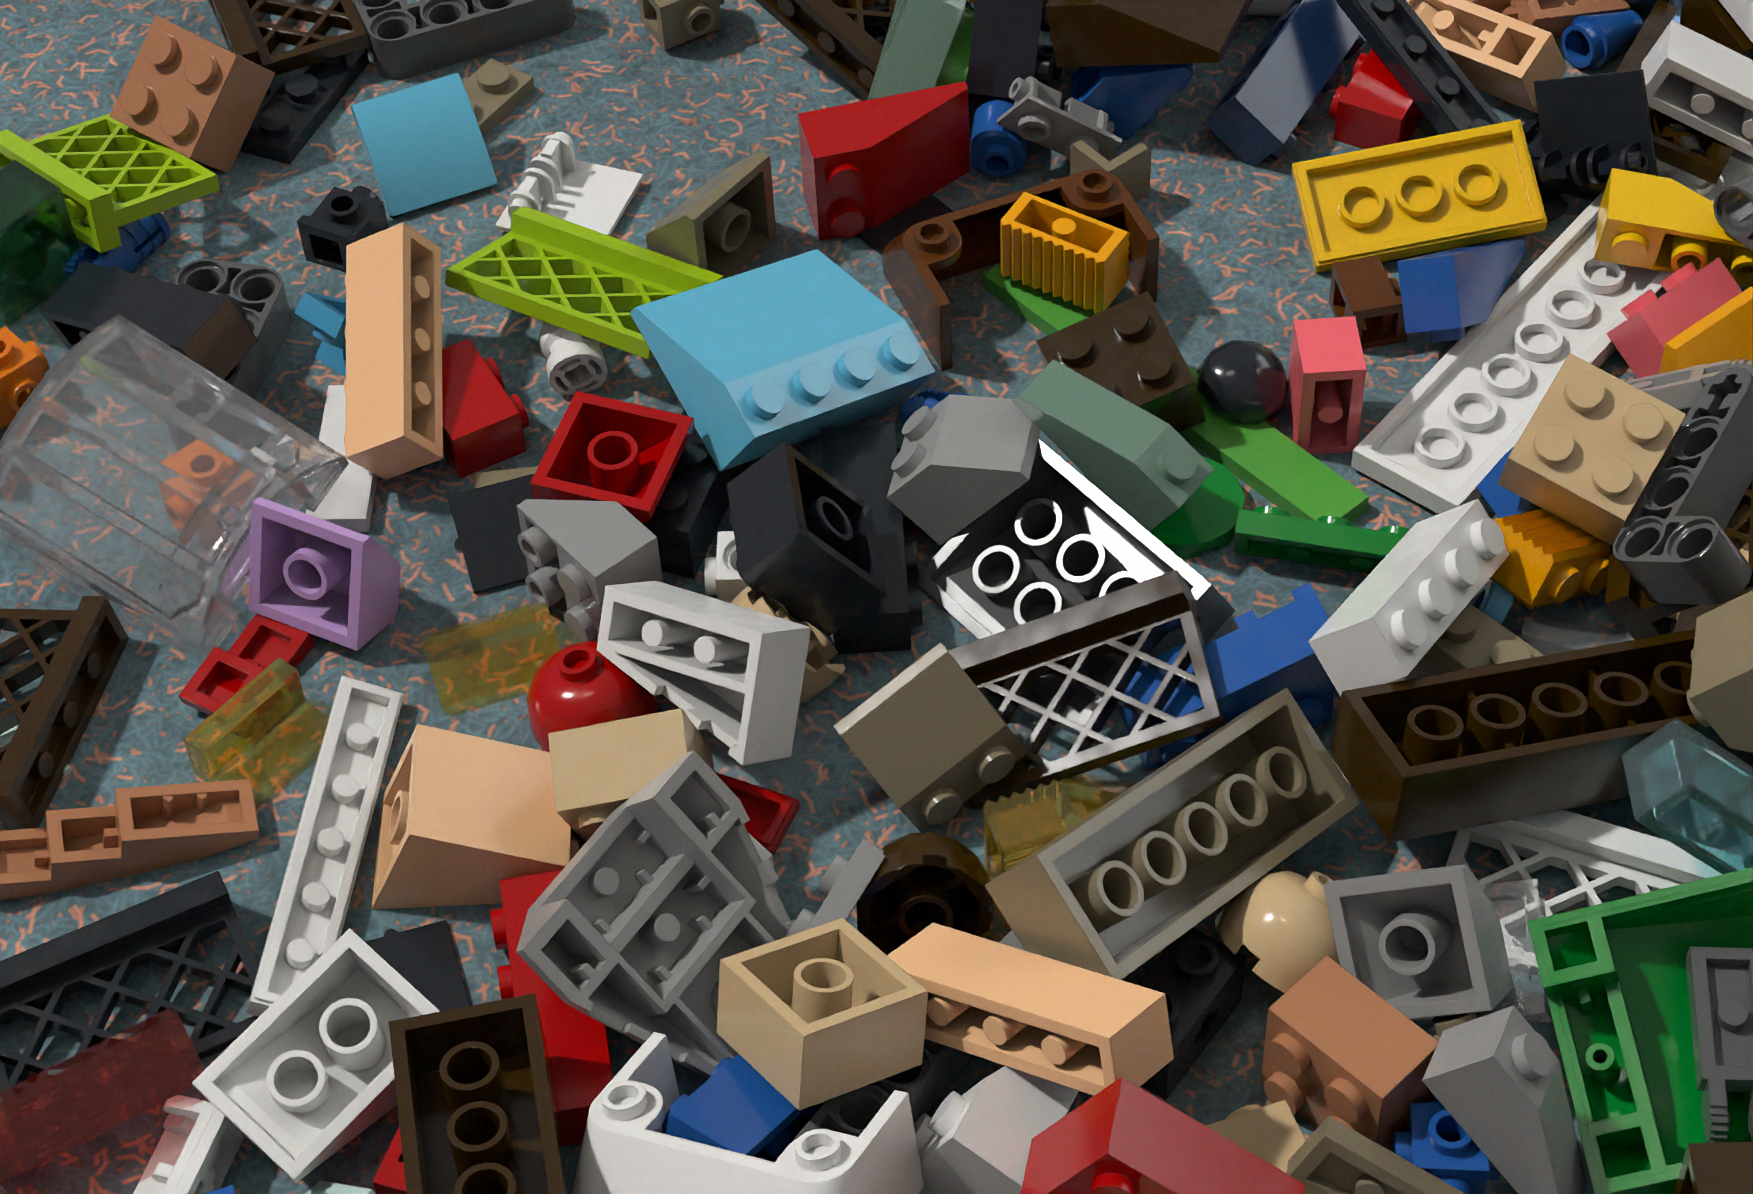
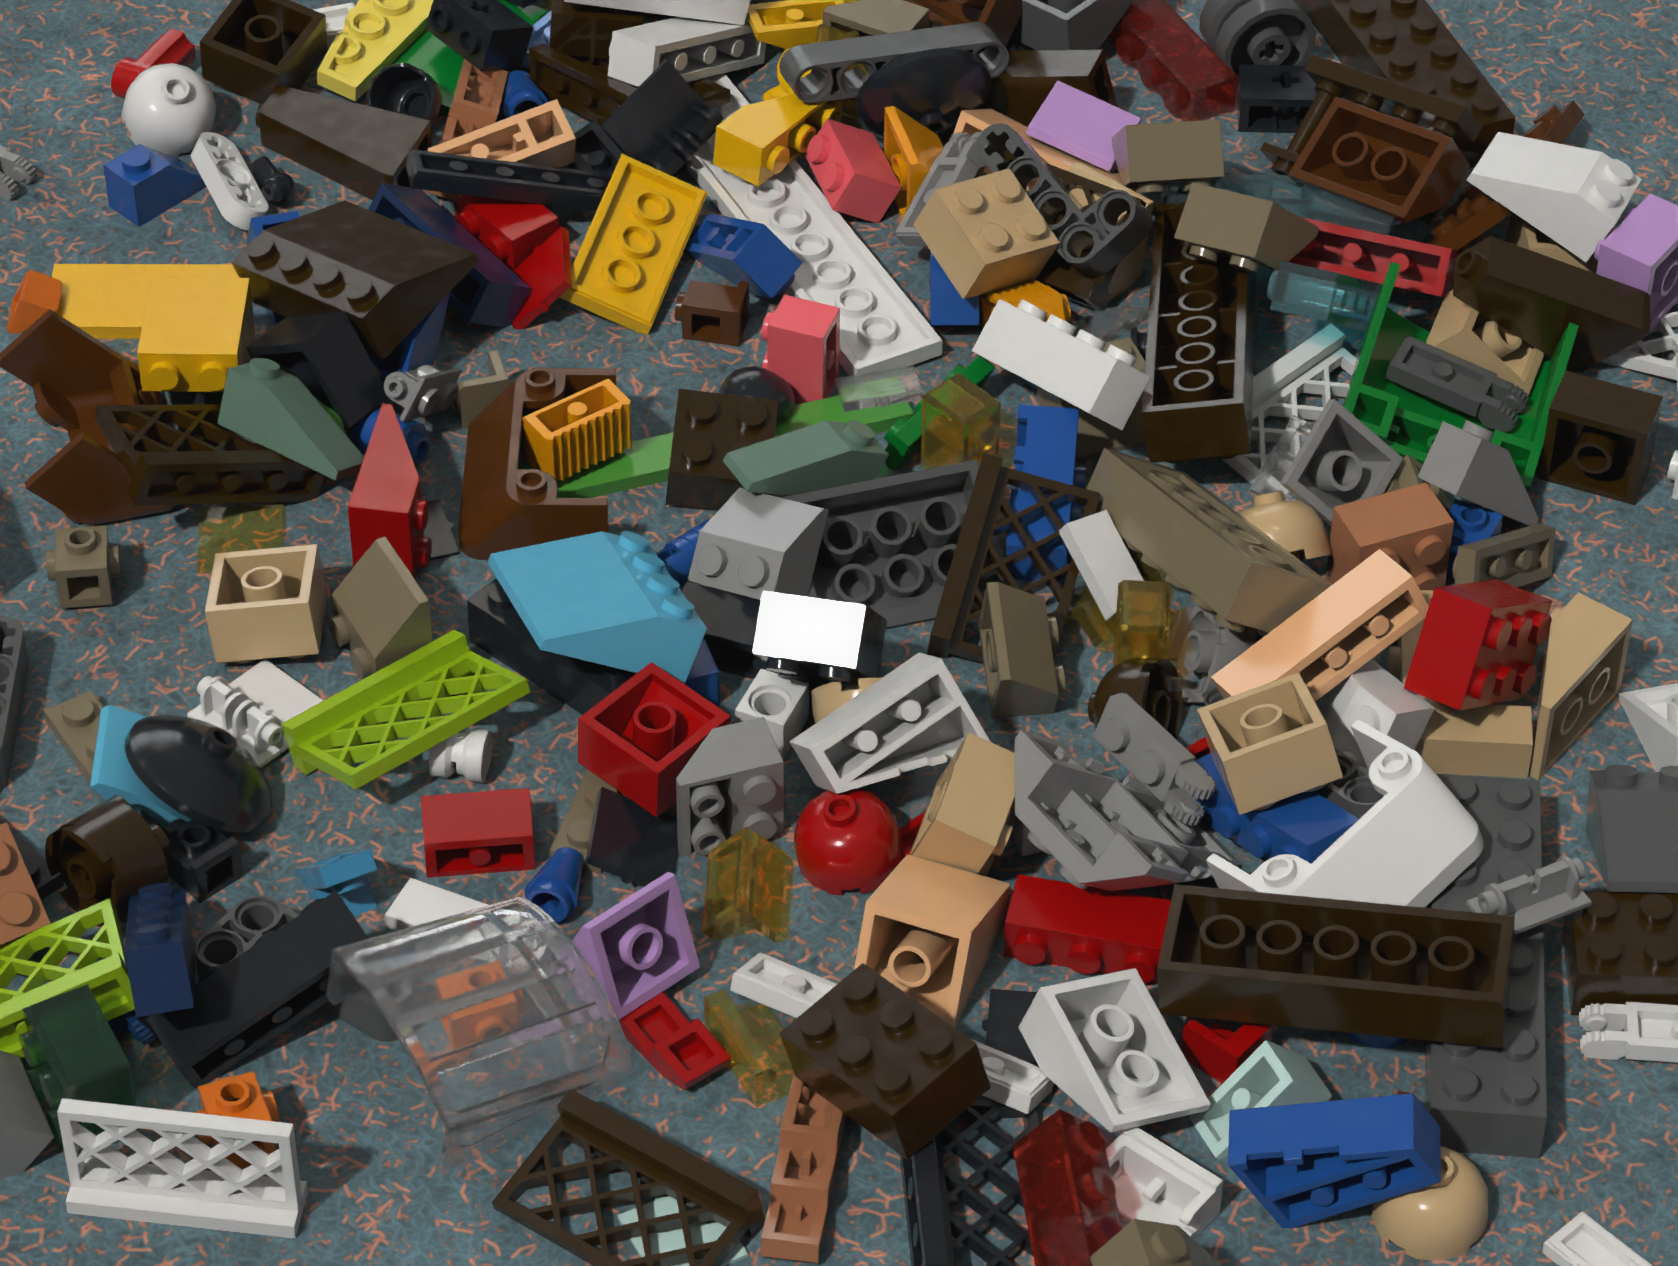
camera: 70 degrees left, 5 degrees down
(135, 222) = (160, 950): none -> dark blue brick
(203, 832) = (885, 1060): none -> dark brown brick
(285, 162) = (107, 856): none -> dark brown brick
(393, 352) = (428, 830): light nougat brick -> none
(395, 180) = (199, 772): none -> black dish
(421, 495) = (557, 884): none -> blue cone
(684, 131) = (266, 604): none -> tan brick
(799, 91) = (237, 530): none -> clear yellow piece
(1129, 751) = (1100, 558): none -> white tile
(1278, 554) = (958, 423): none -> clear yellow brick
(1311, 149) = (547, 275): none -> red piece
(1328, 478) = (879, 388): none -> clear piece

